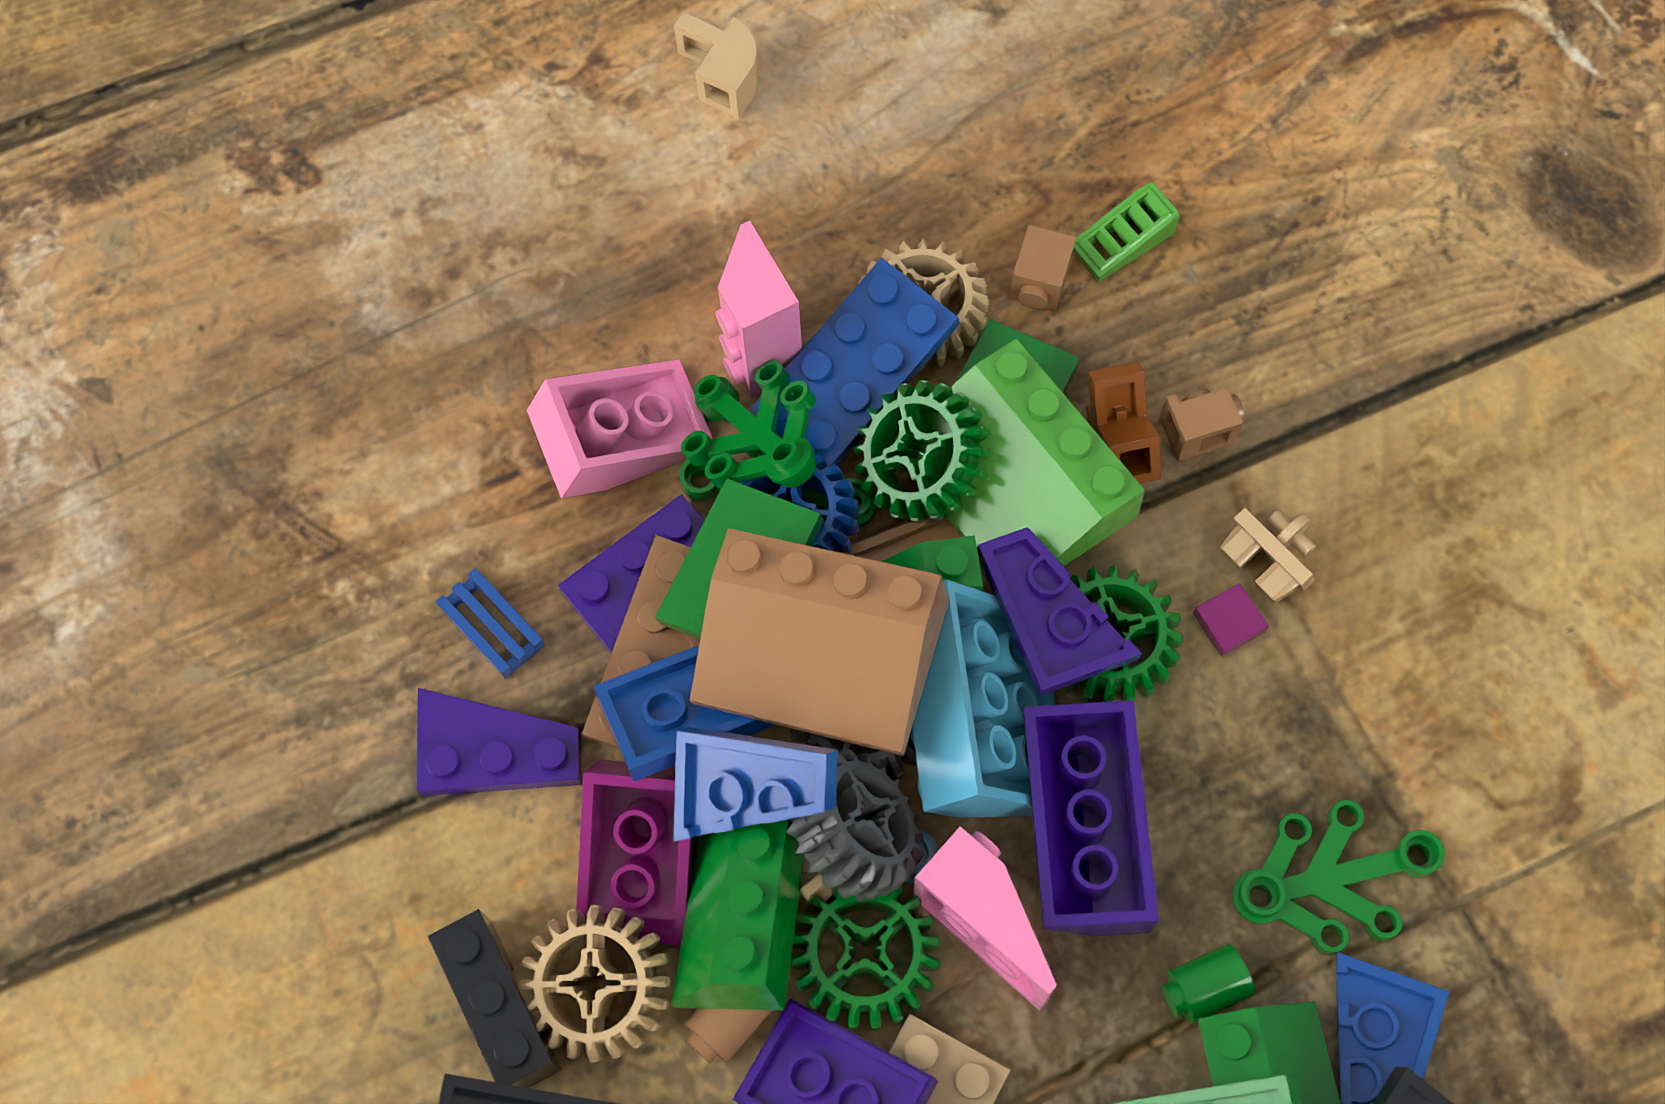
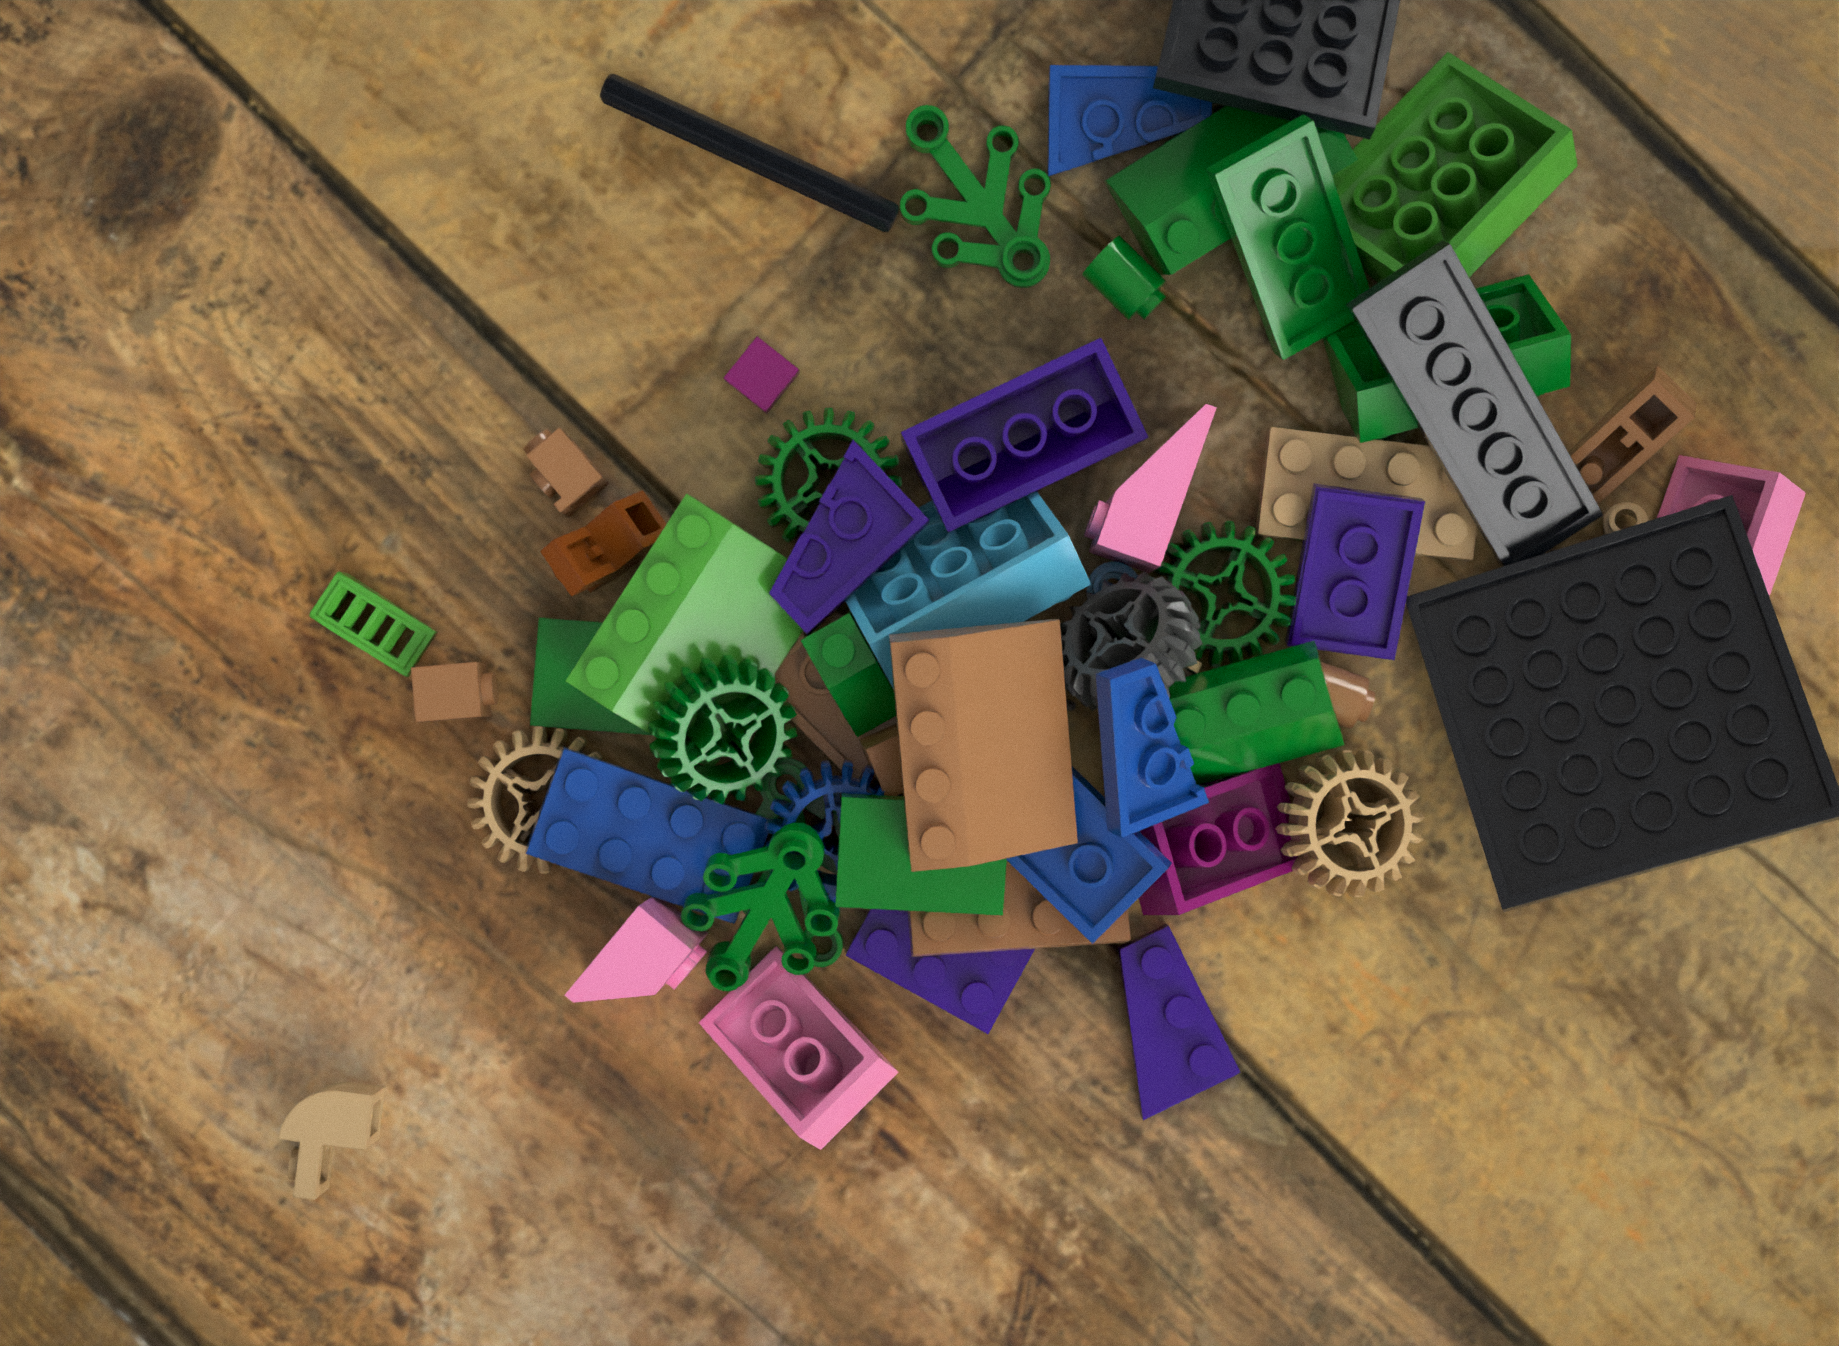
camera: 115 degrees left, 20 degrees up
(463, 593) = (1030, 1125): blue tile -> none
(493, 1002) = (1390, 927): black arch -> none
(1287, 571) = (691, 336): tan hips -> none
(1443, 688) = (749, 152): none -> black axle

